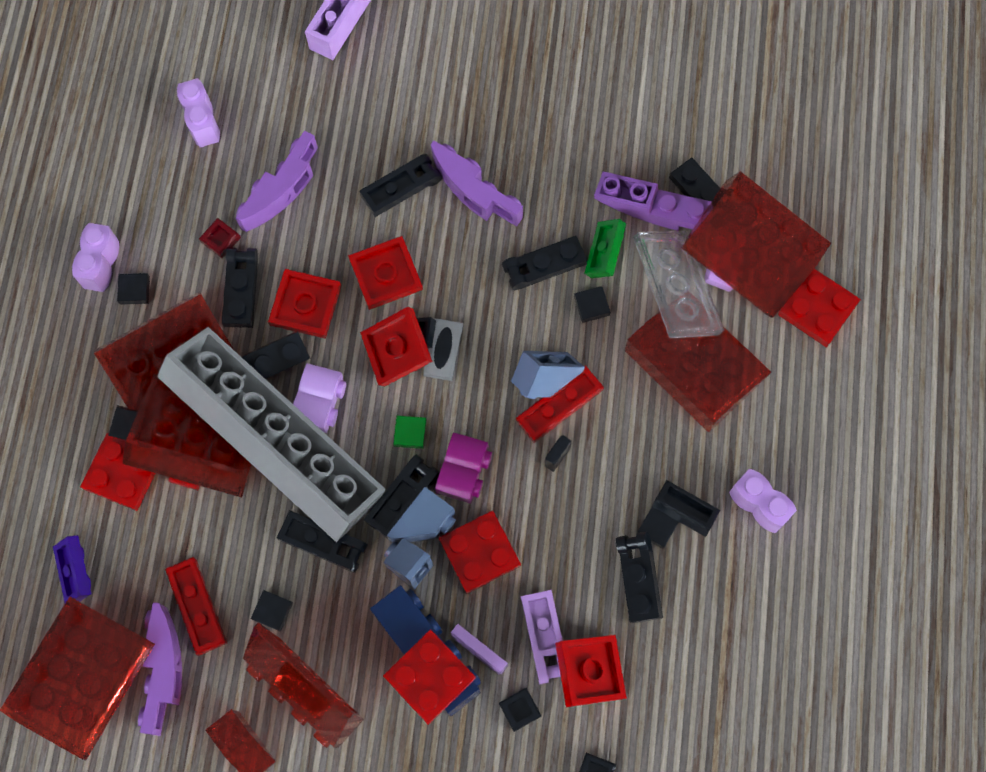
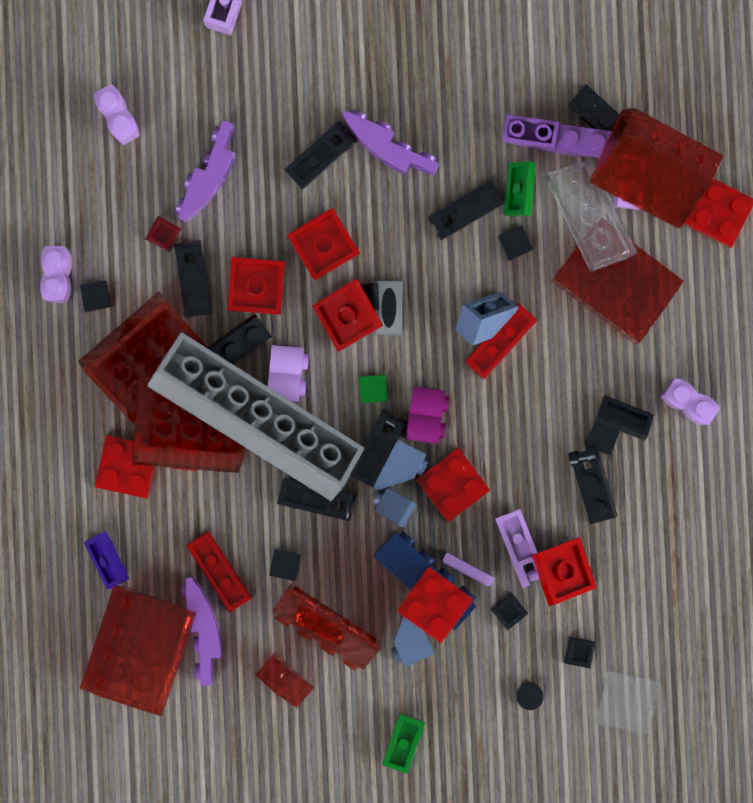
camera: 15 degrees left, 15 degrees up
(122, 422) = (121, 424): black tile -> none
(397, 725) = (410, 643): none -> sand blue slope
(557, 453) = (506, 388): black tile -> none

